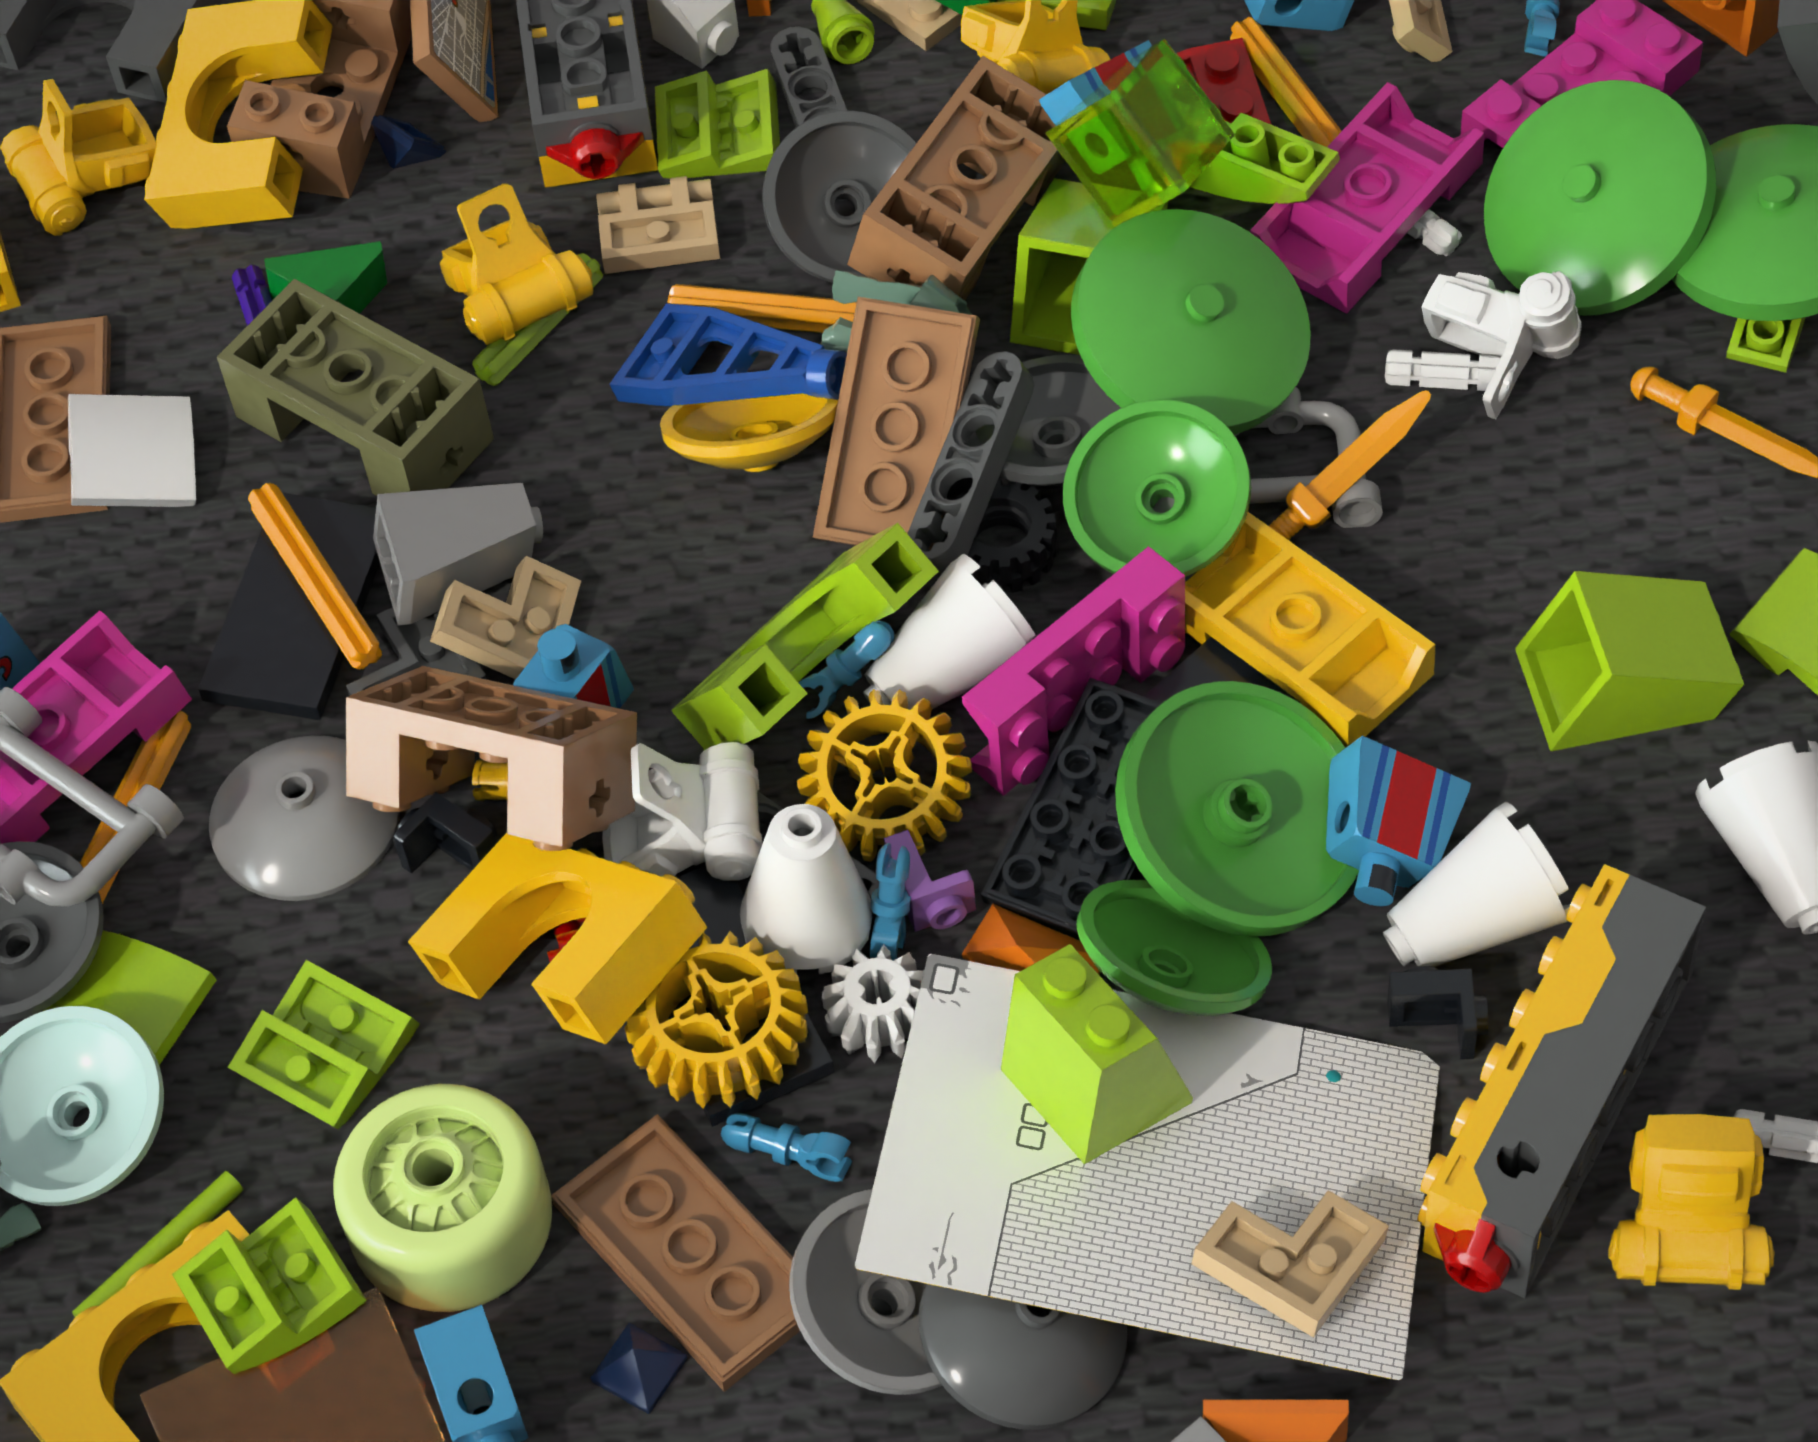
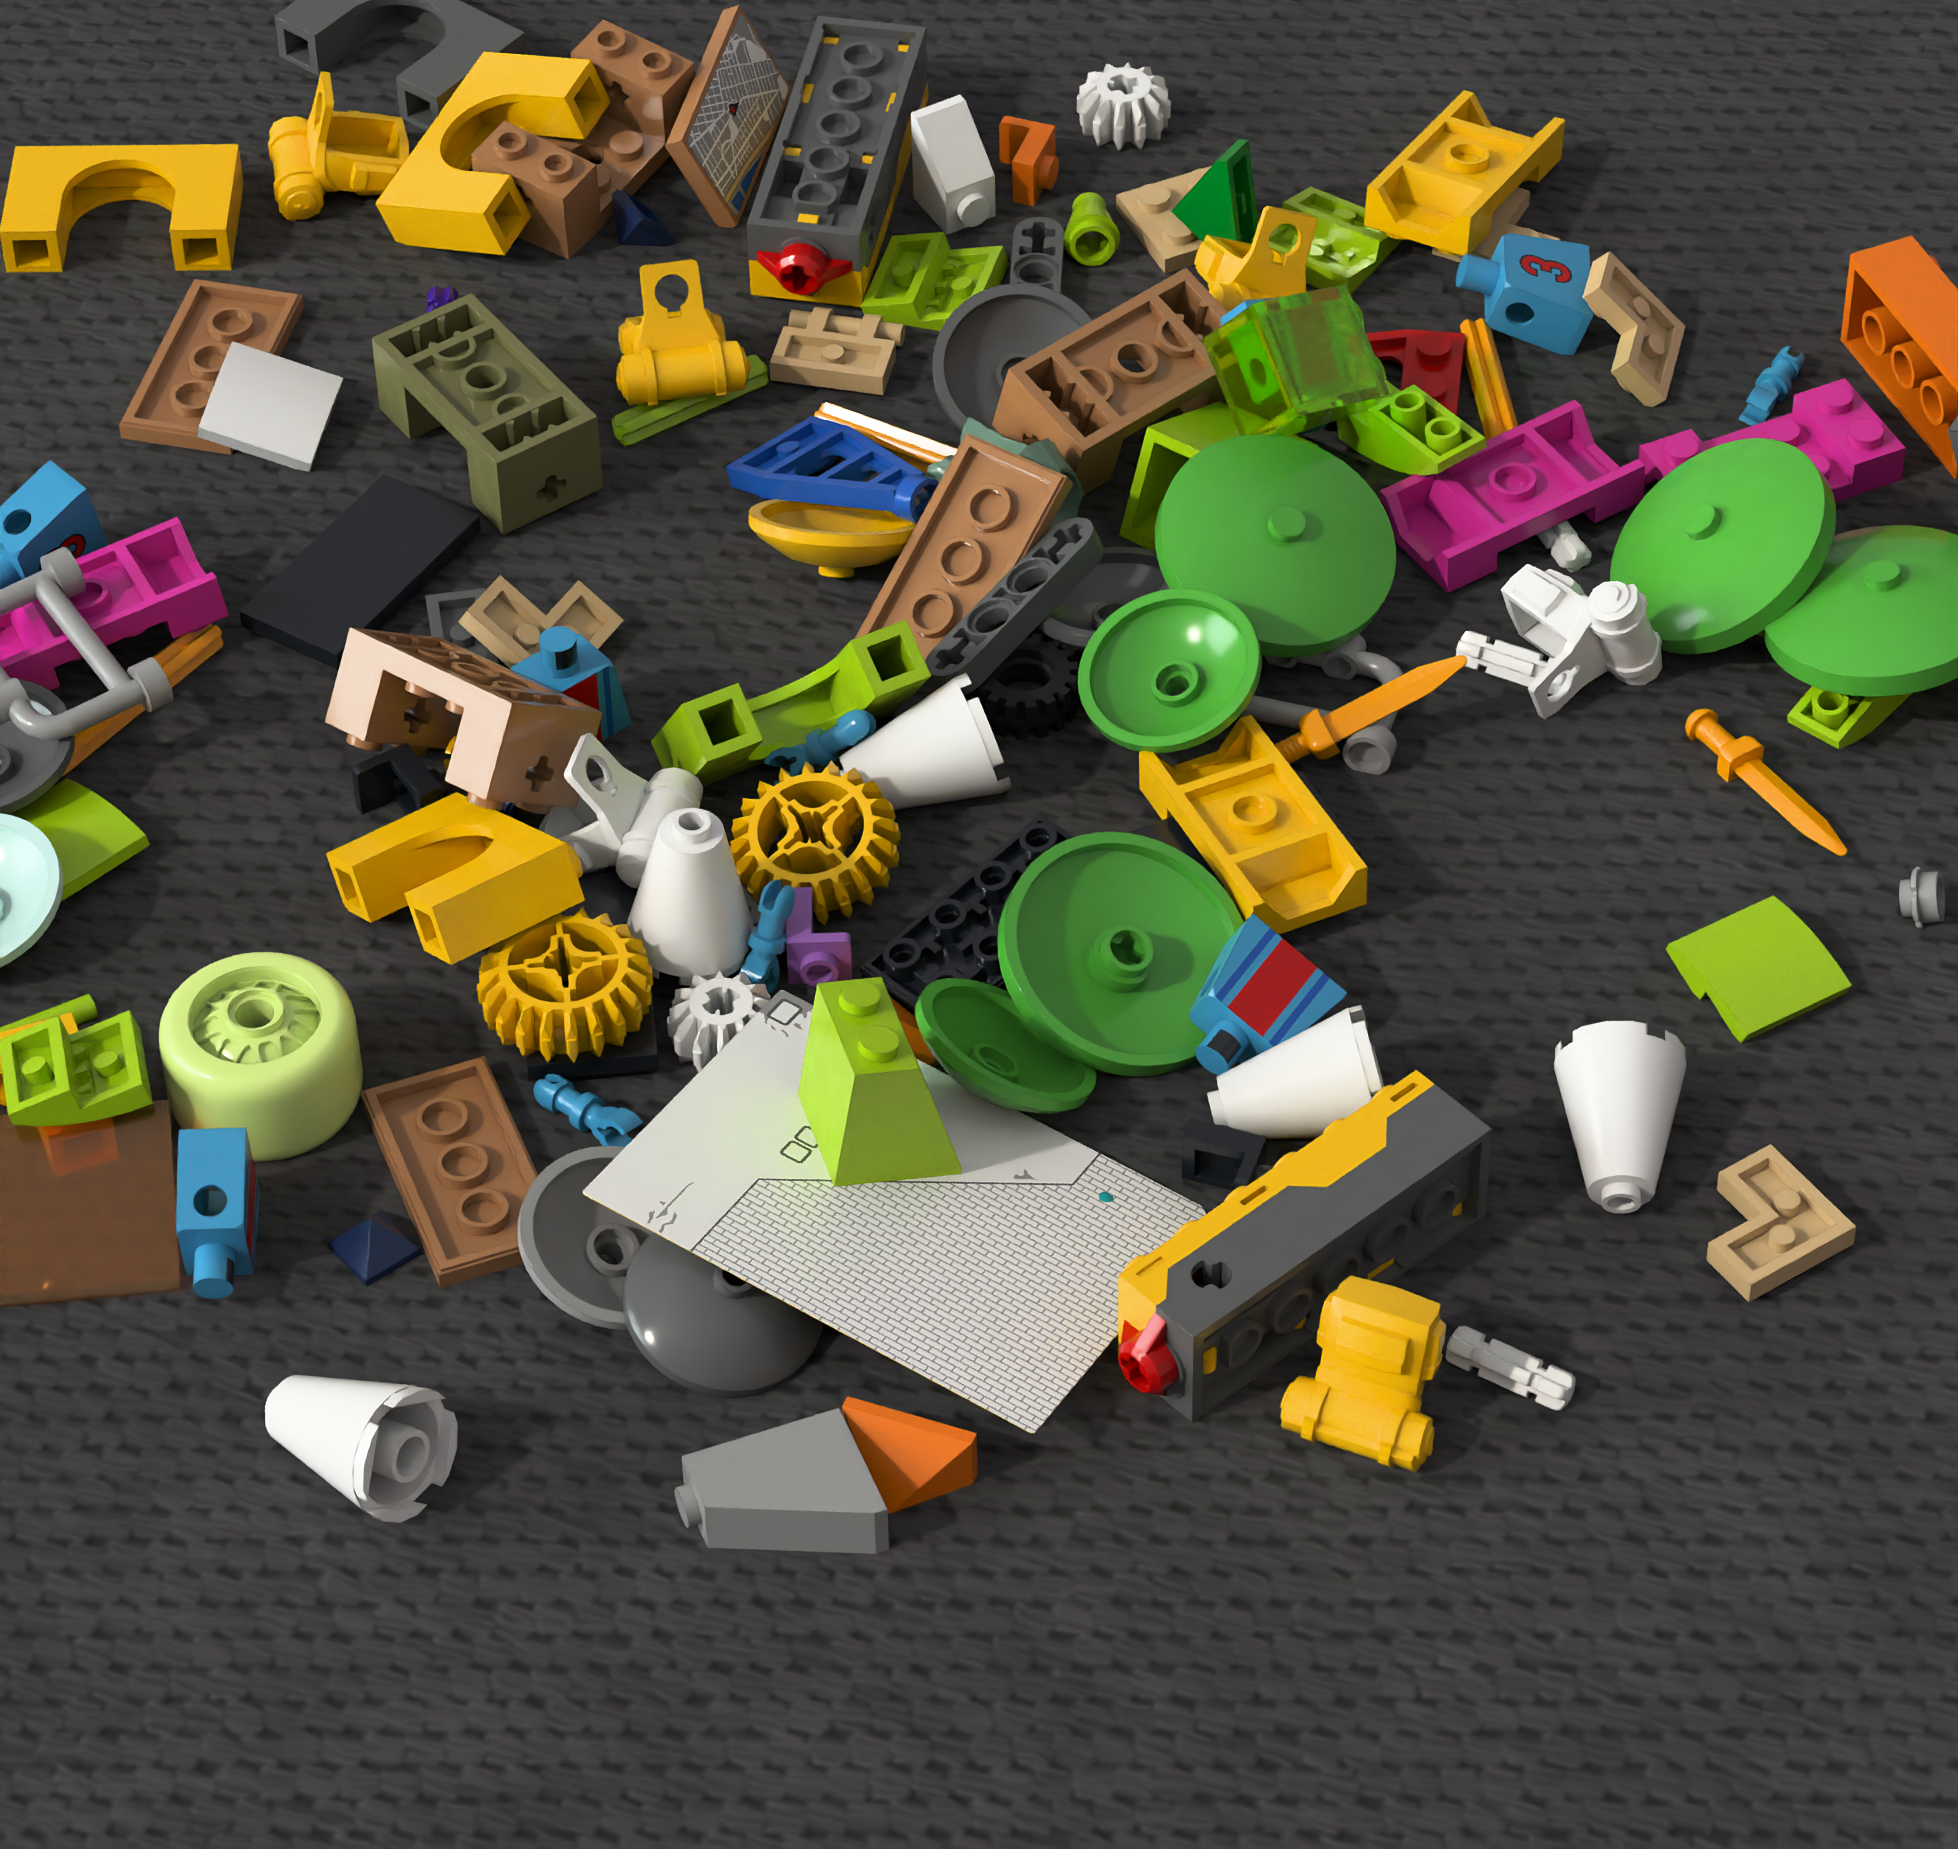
camera: 15 degrees right, 10 degrees down
(300, 843) = (274, 748): light grey dish -> none
(315, 576) = (383, 546): light orange axle -> none
(323, 1045) = (218, 916): lime slope -> none
(344, 274) = (531, 313): green slope -> none
(449, 536) = (526, 543): light grey slope -> none
(1123, 624) = (1076, 777): dark pink piece -> none
(1295, 1275) = (978, 1319): tan plate -> none
(1626, 658) = (1555, 936): lime slope -> none

